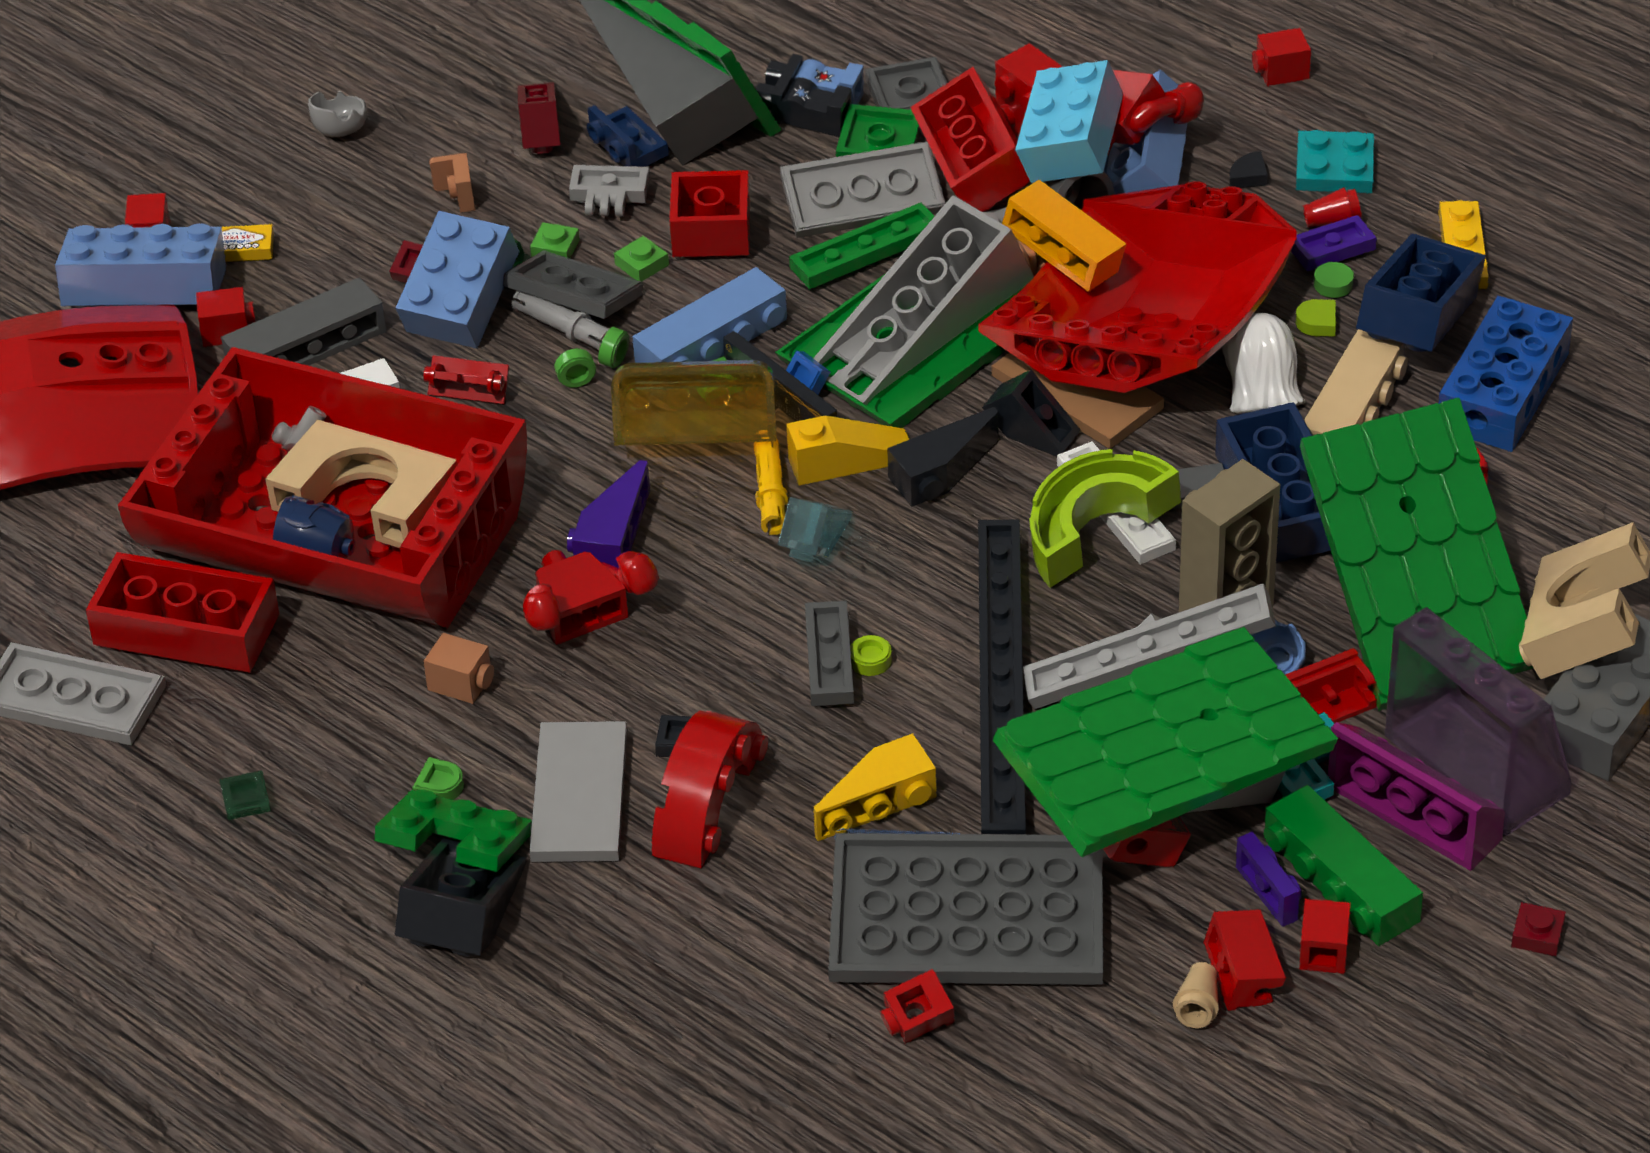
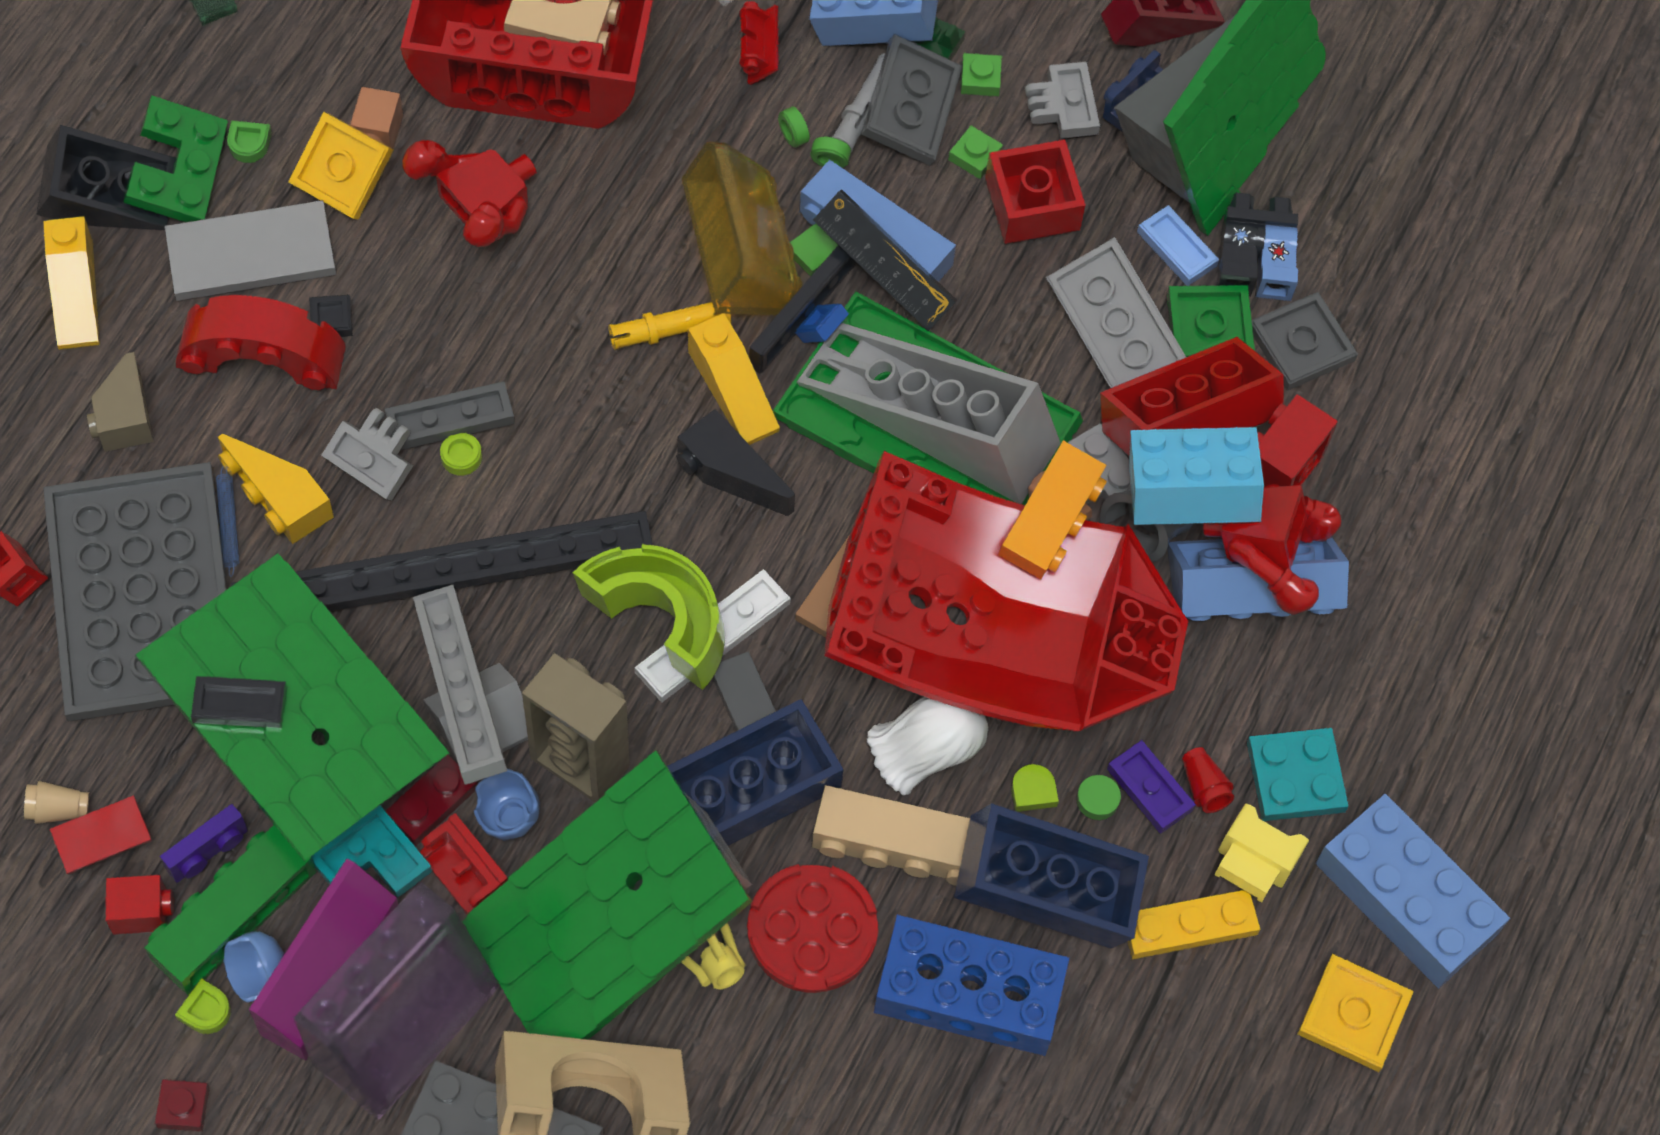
camera: 70 degrees right, 20 degrees up
(508, 696) = (340, 165): none -> yellow tile
(574, 930) = (72, 282): none -> slope
(612, 519) = (585, 202): dark purple slope -> none
(744, 899) = (121, 408): none -> dark tan slope
(761, 308) = (885, 260): none -> black tile
(786, 148) = (1178, 245): none -> light blue tile
(812, 528) = (614, 370): clear light blue slope -> none
(859, 709) = (371, 453): none -> light grey hinge
(860, 246) = (1037, 342): green plate -> none
(1032, 414) = (808, 535): black slope -> none
(1163, 762) = (238, 702): none -> black tile
(1248, 171) = (1256, 688): black tile -> none
(1282, 57) = (1450, 693): red brick -> none
(1409, 187) = (1258, 854): none -> light yellow piece
(1411, 844) = (251, 962): none -> medium blue hair
(1442, 903) = (205, 1009): none -> lime tile
(1460, 106) = (1412, 890): none -> medium blue brick
(1561, 161) = (1355, 1013): none -> yellow plate

